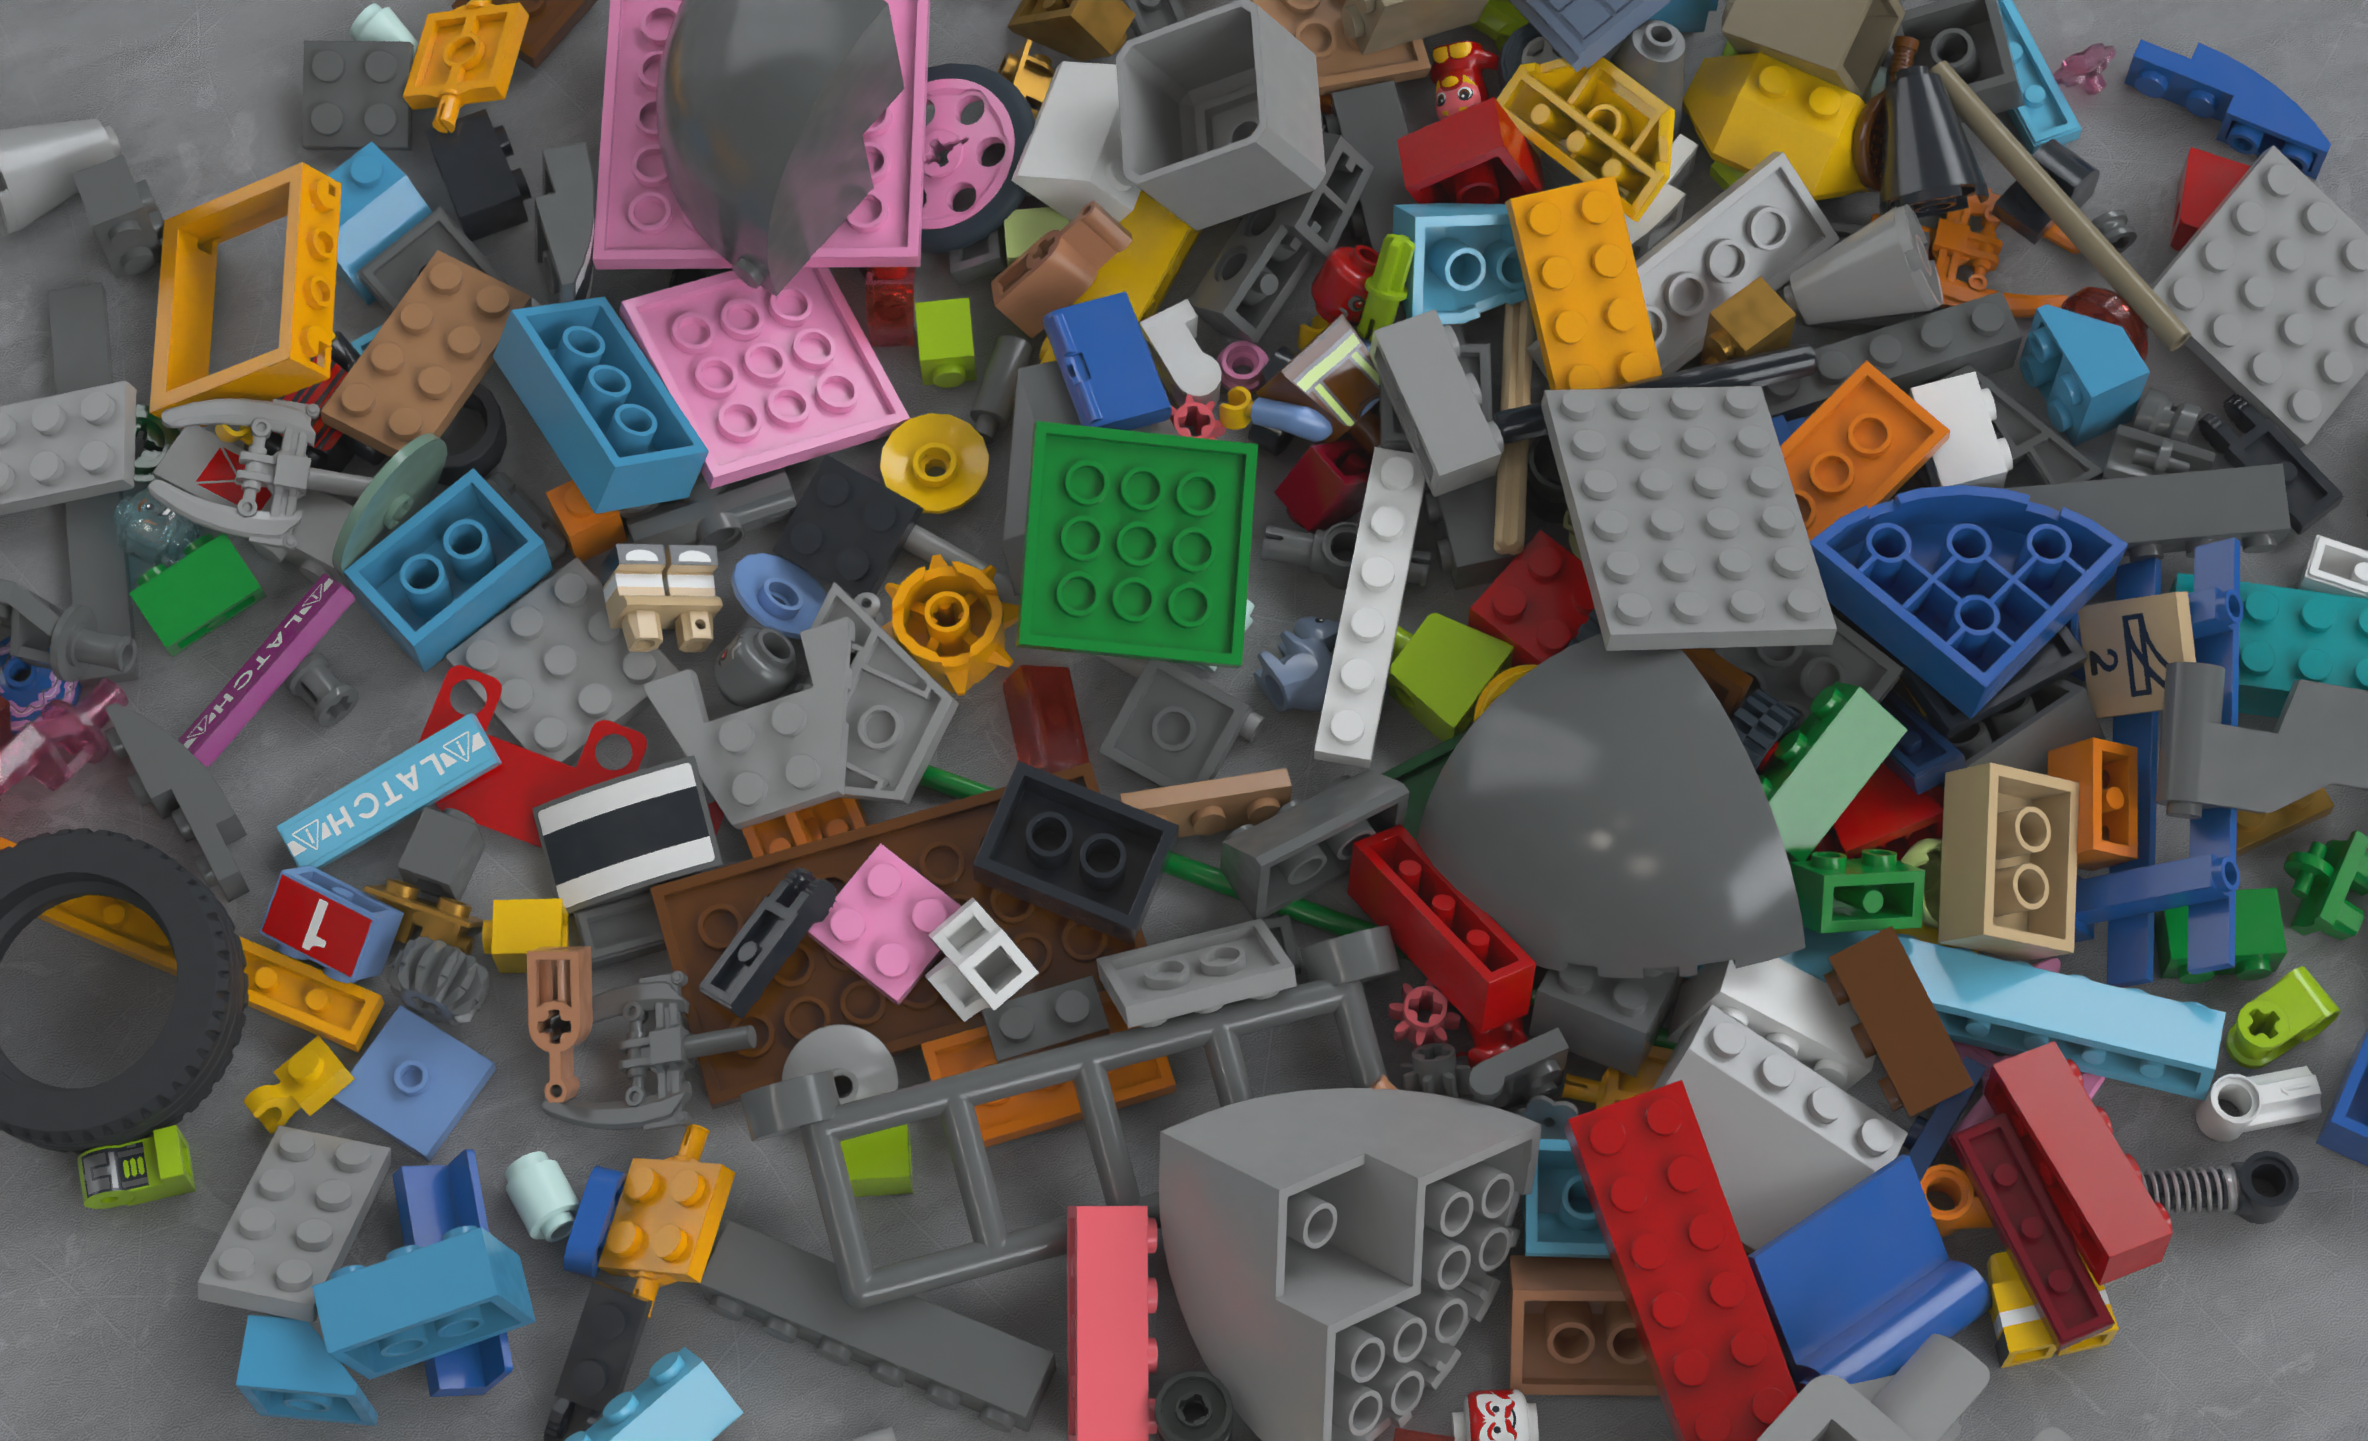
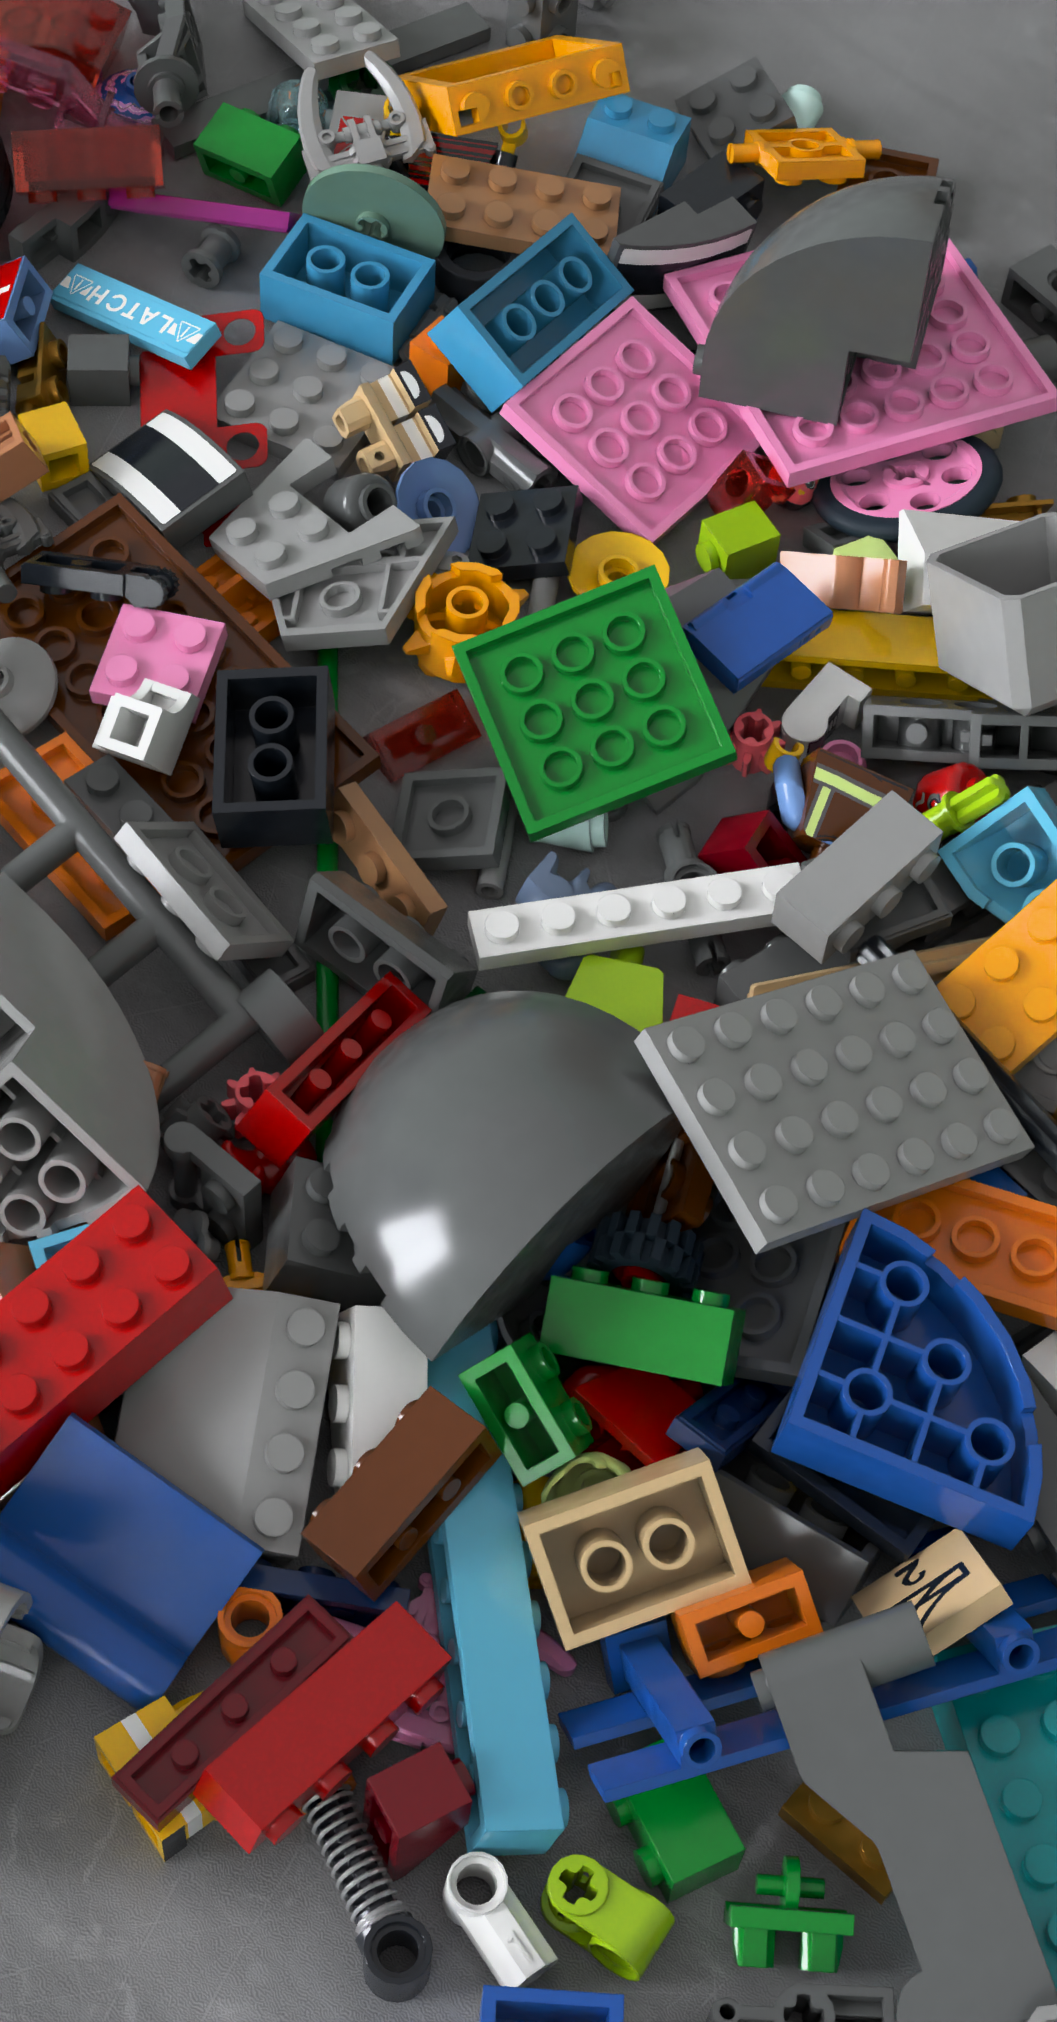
camera: 60 degrees right, 10 degrees down
(170, 756) = (89, 162): none -> clear red slope
(2164, 1118) = (417, 1807): none -> dark red slope

